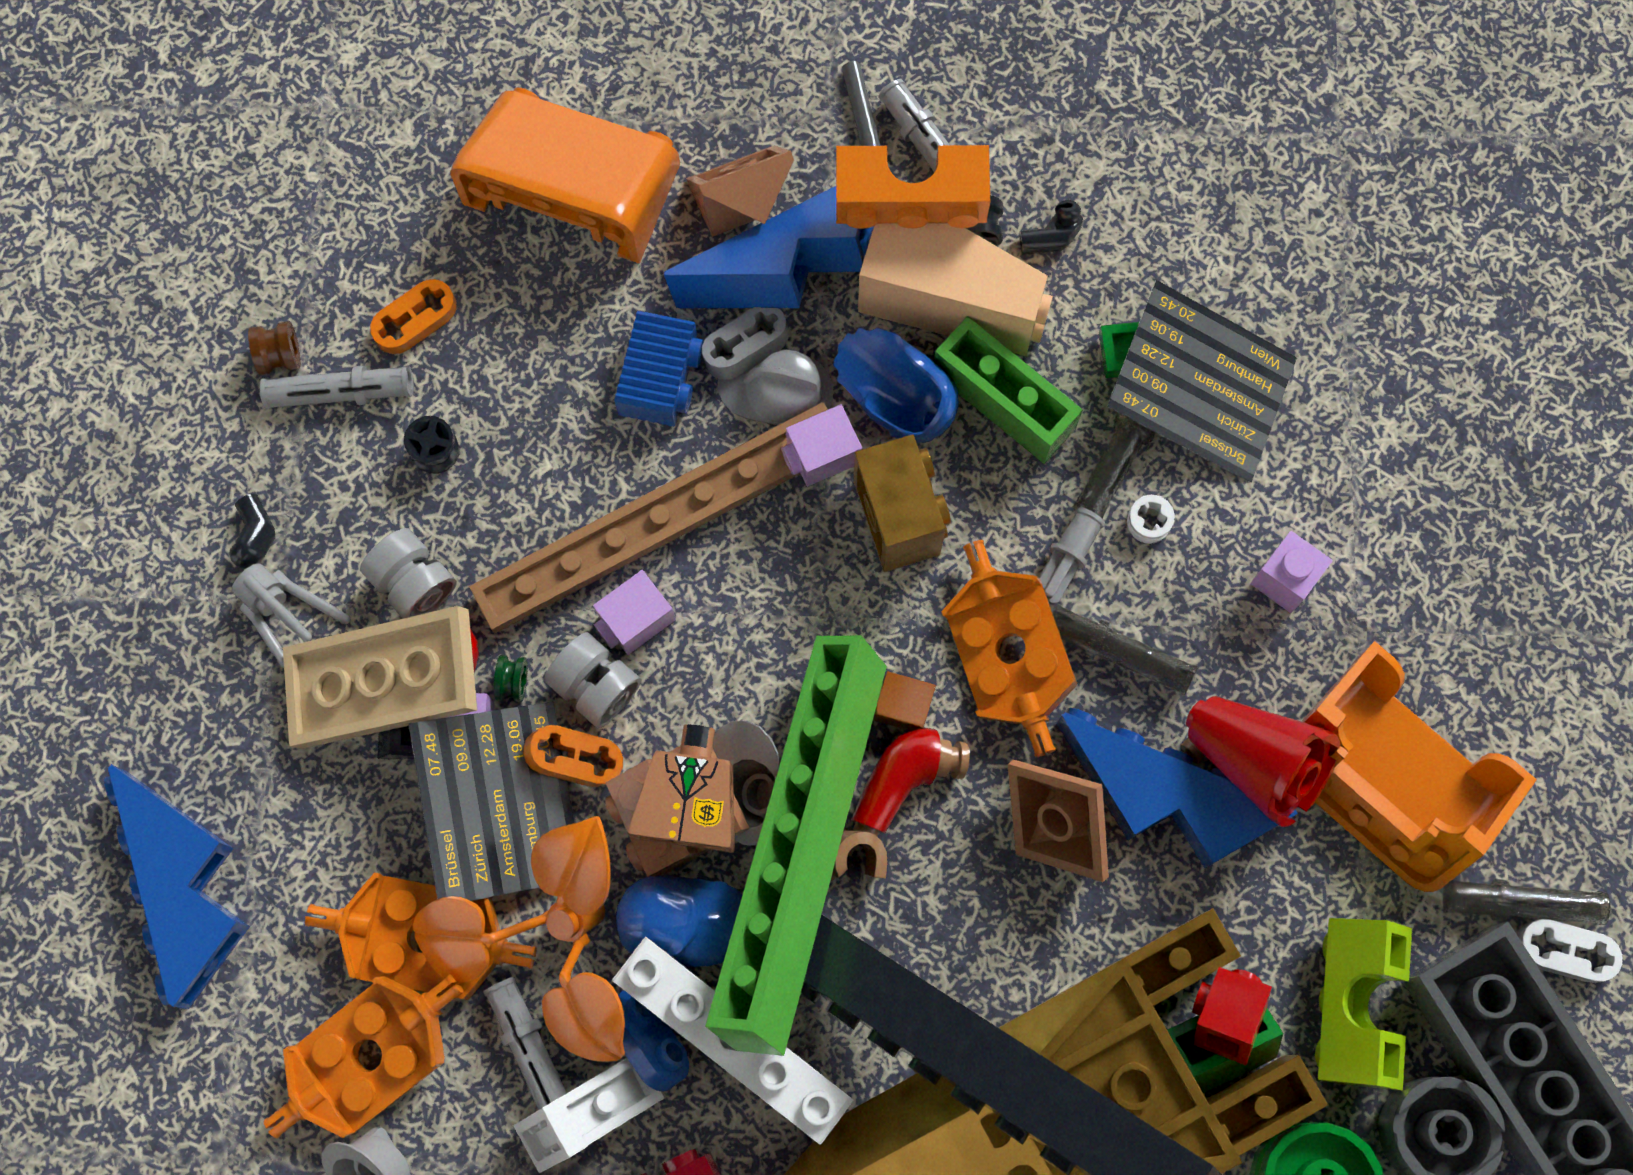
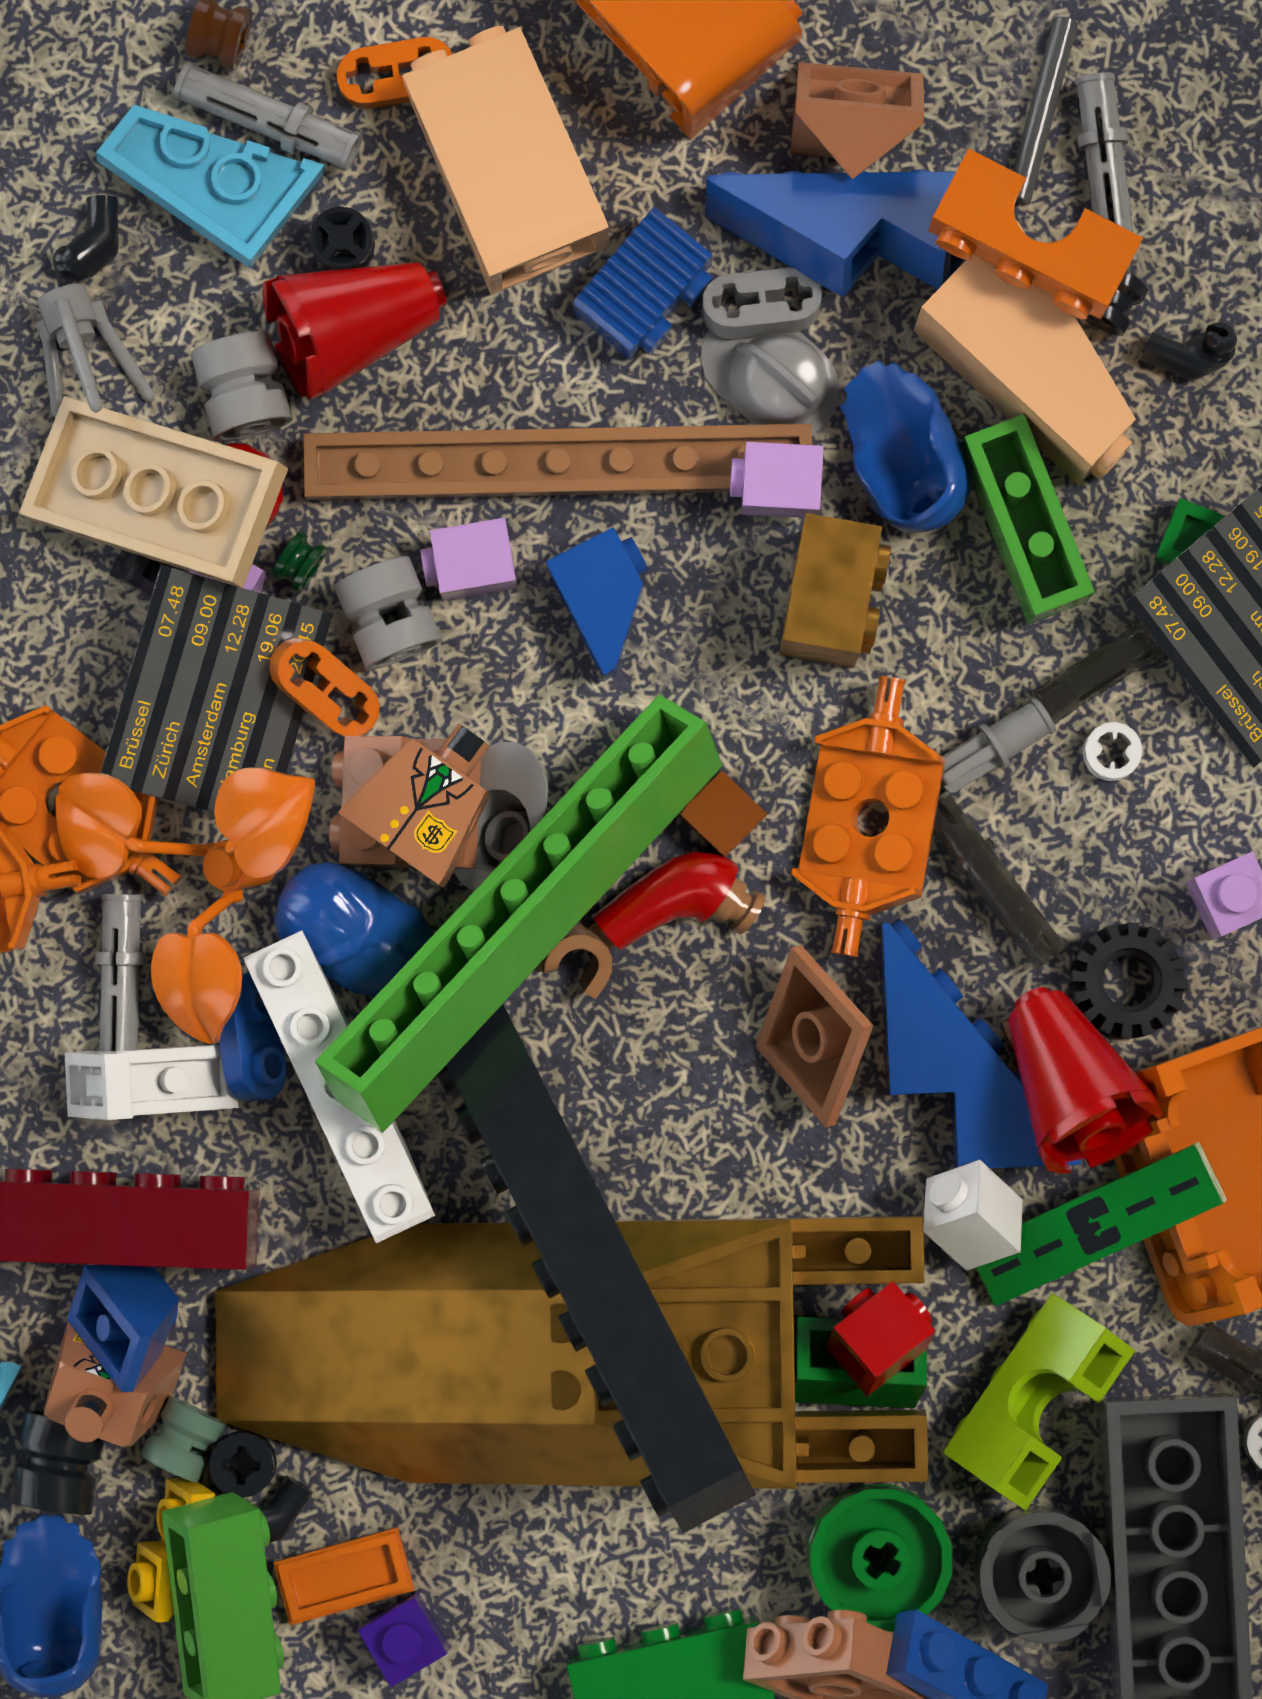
camera: 25 degrees right, 10 degrees up
(322, 452) = (213, 184): none -> medium azure wing
(460, 492) = (347, 319): none -> red cone
(520, 331) = (505, 158): none -> light nougat slope
(736, 590) = (601, 593): none -> blue slope
(1242, 890) = (973, 1215): none -> white brick
(1264, 642) = (1165, 971): none -> black tyre
(1333, 850) = (1106, 1222): none -> green tile

